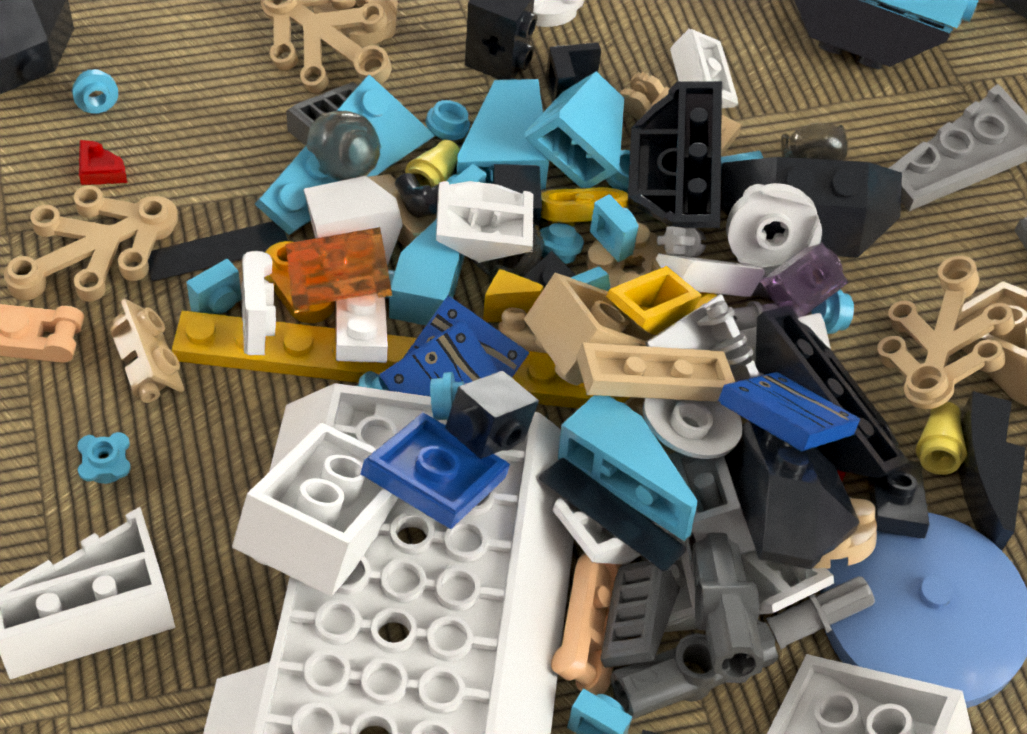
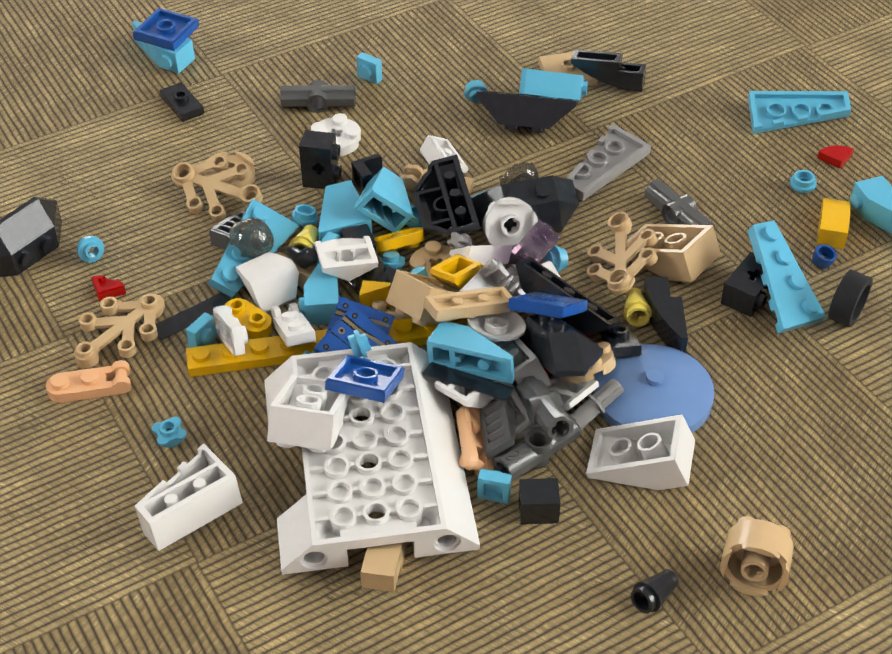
camera: 10 degrees left, 10 degrees down
(141, 335) = (181, 378): tan hinge -> none
(337, 268) = (270, 301): clear orange plate -> none
(491, 414) = (386, 344): black brick -> none
(614, 227) = (420, 244): medium azure plate -> none

